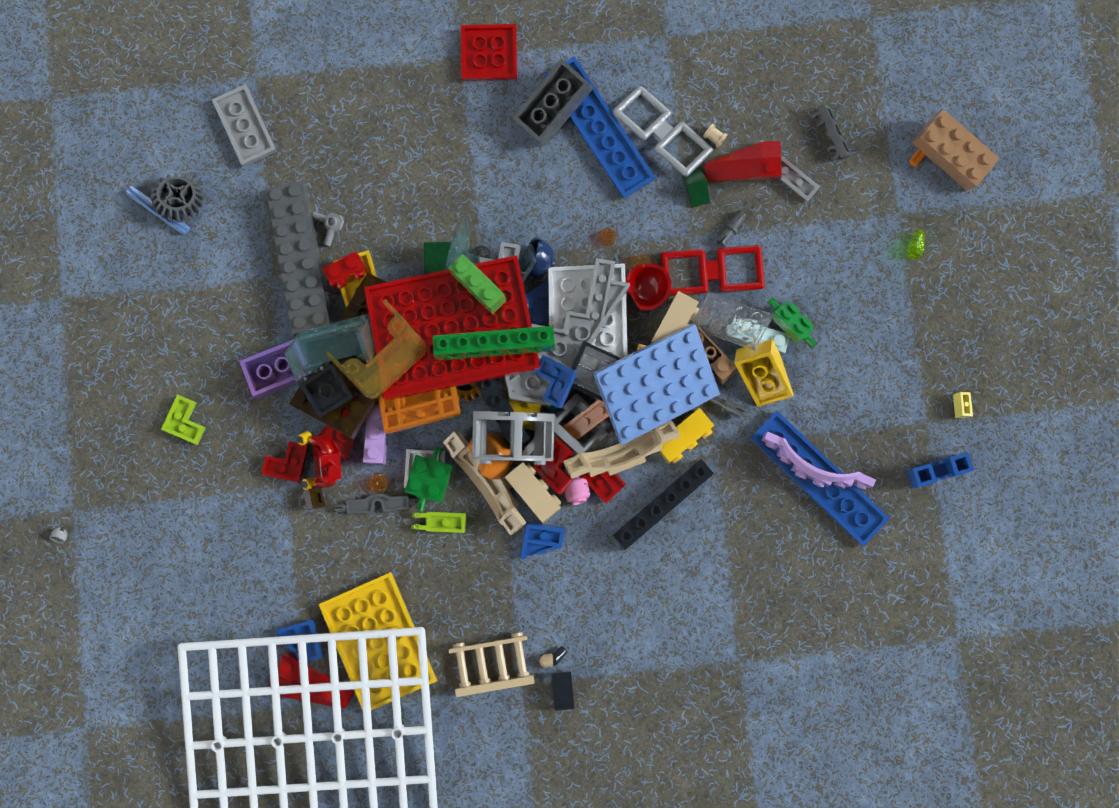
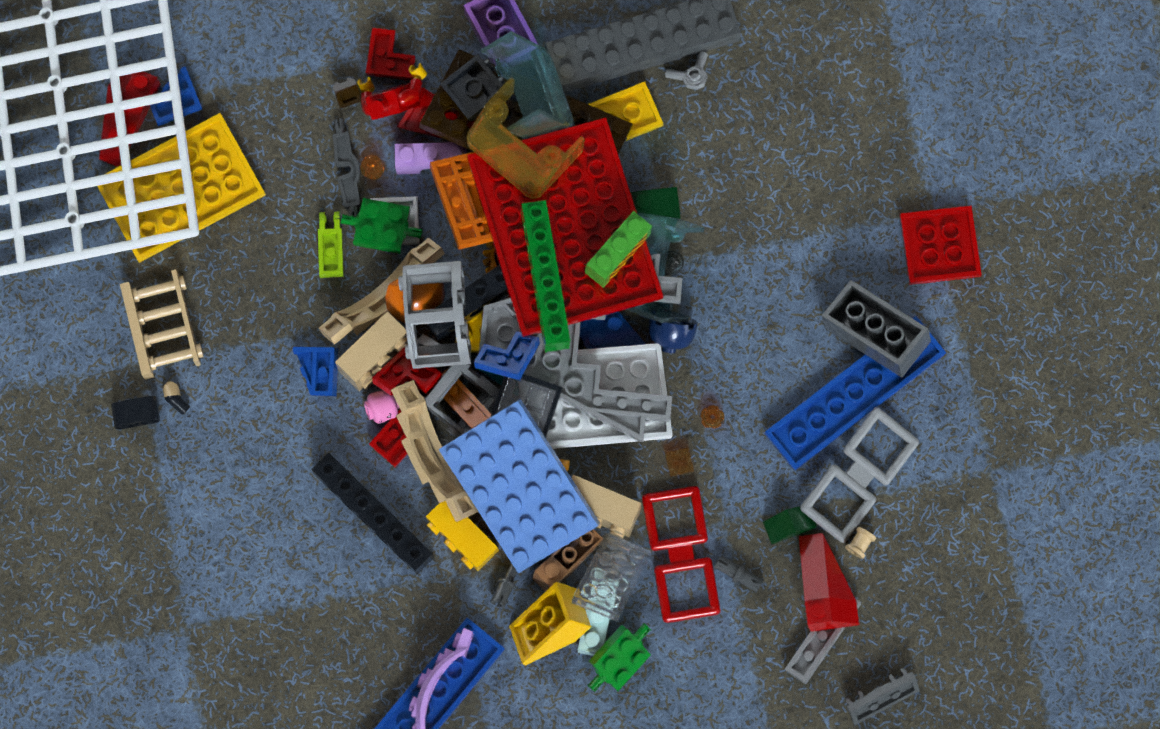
camera: 85 degrees right, 5 degrees down
(345, 270) = (631, 97): red brick -> none
(649, 286) = (648, 471): red cylinder -> none

